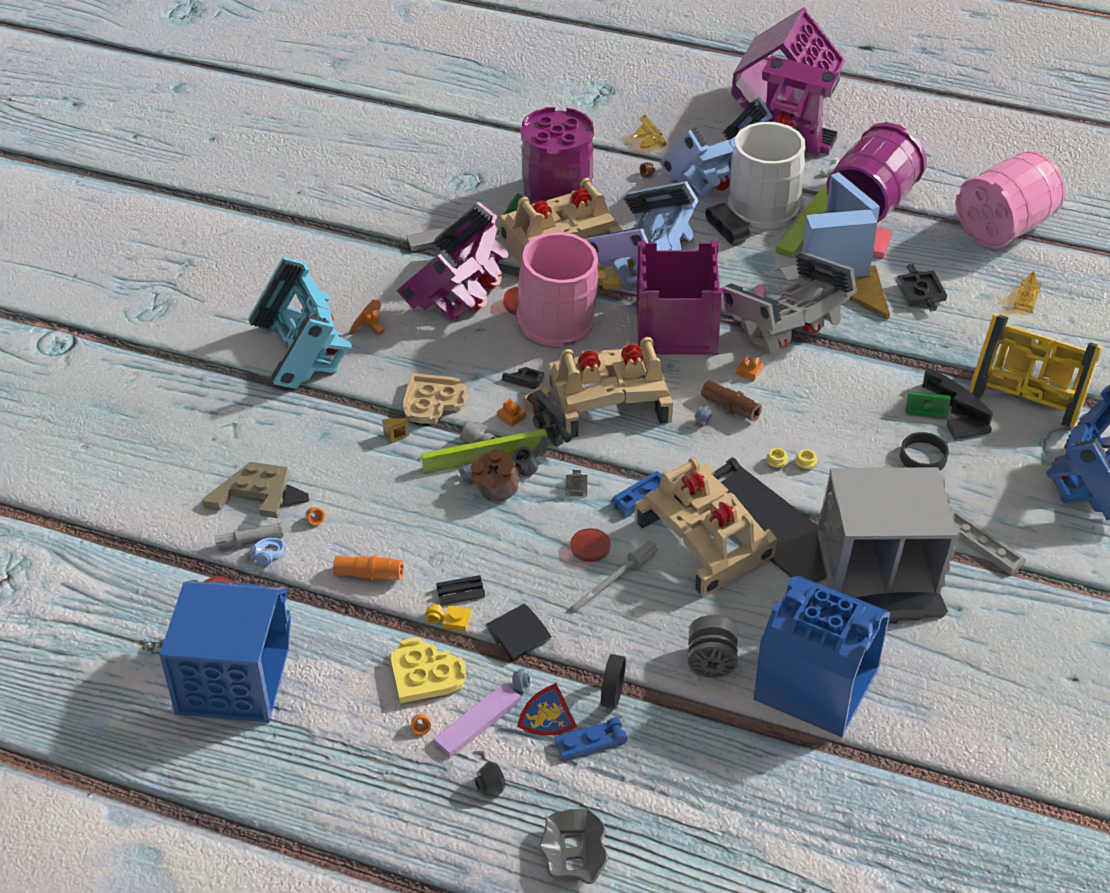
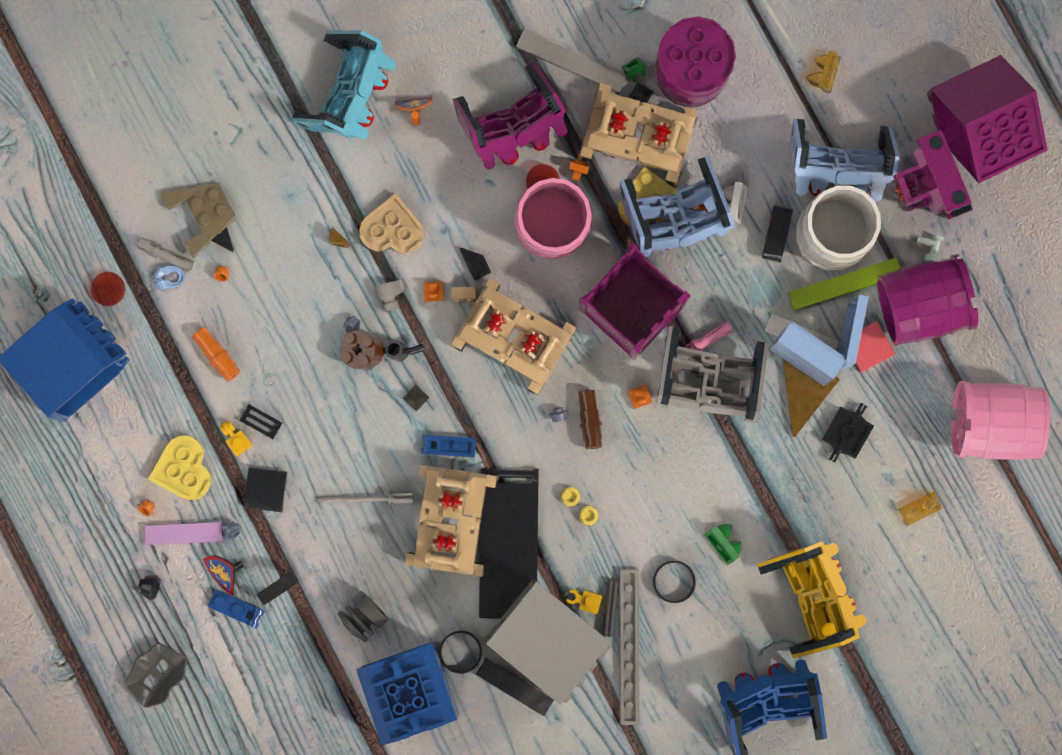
camera: 40 degrees right, 40 degrees up
(469, 453) = (380, 314): lime tile -> none
(548, 417) = (443, 321): black plate -> none
(590, 545) = (375, 459): clear red piece -> none
(646, 169) = (780, 113): reddish brown hinge -> none
(961, 400) = (747, 567): black slope -> none
(967, 427) = (729, 585): black tile -> none

